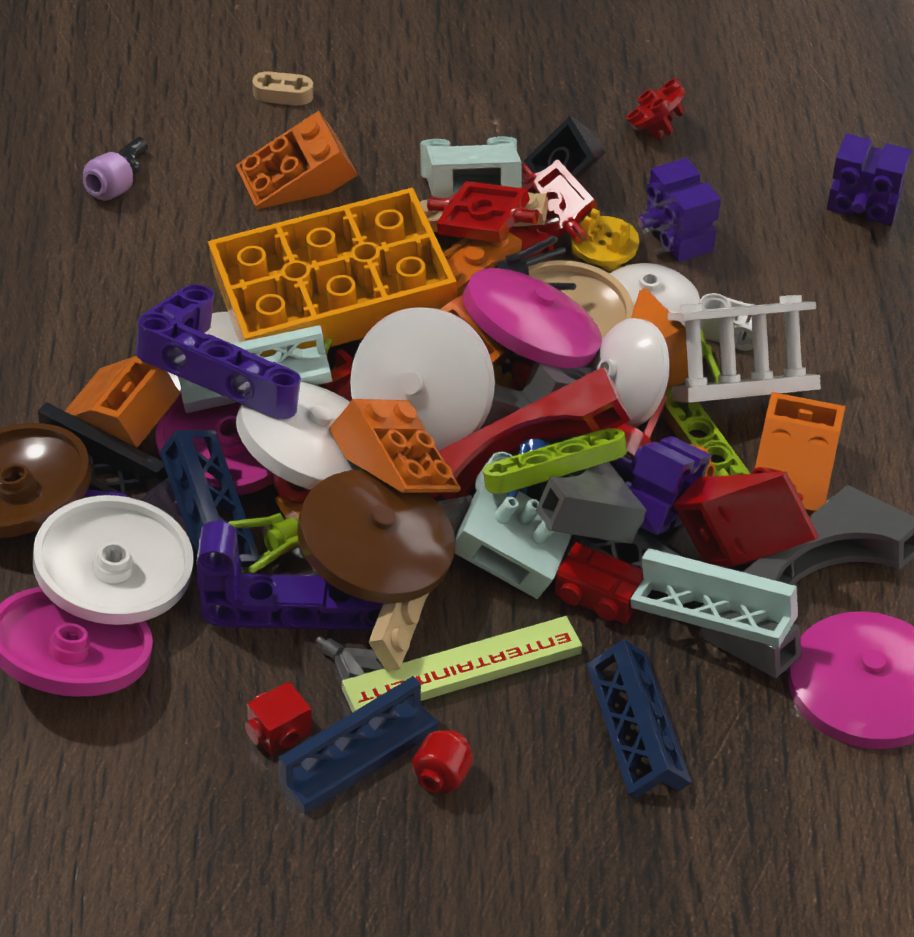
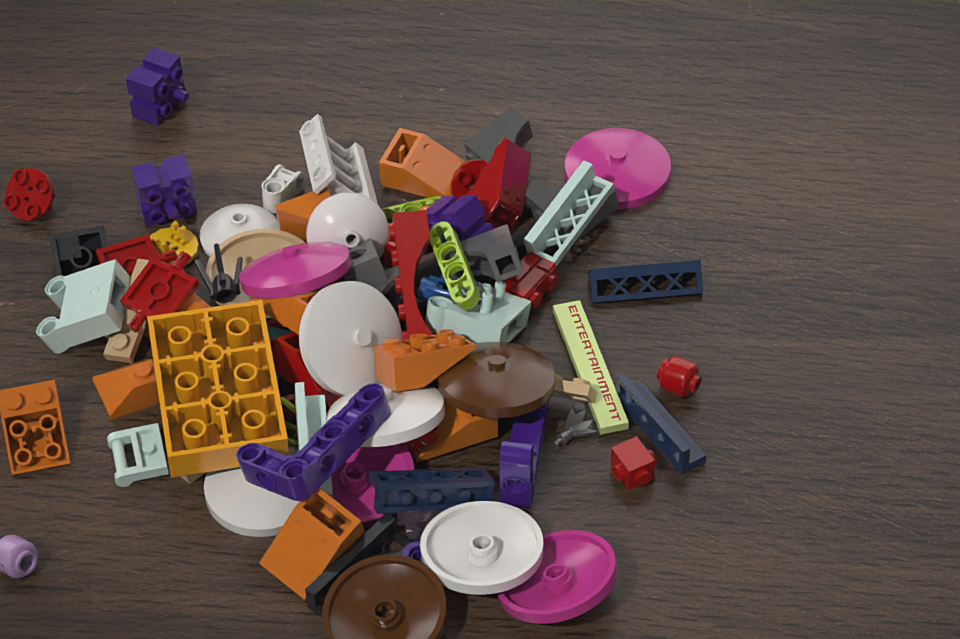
camera: 80 degrees left, 0 degrees up
(279, 538) = (465, 450): lime plant -> none

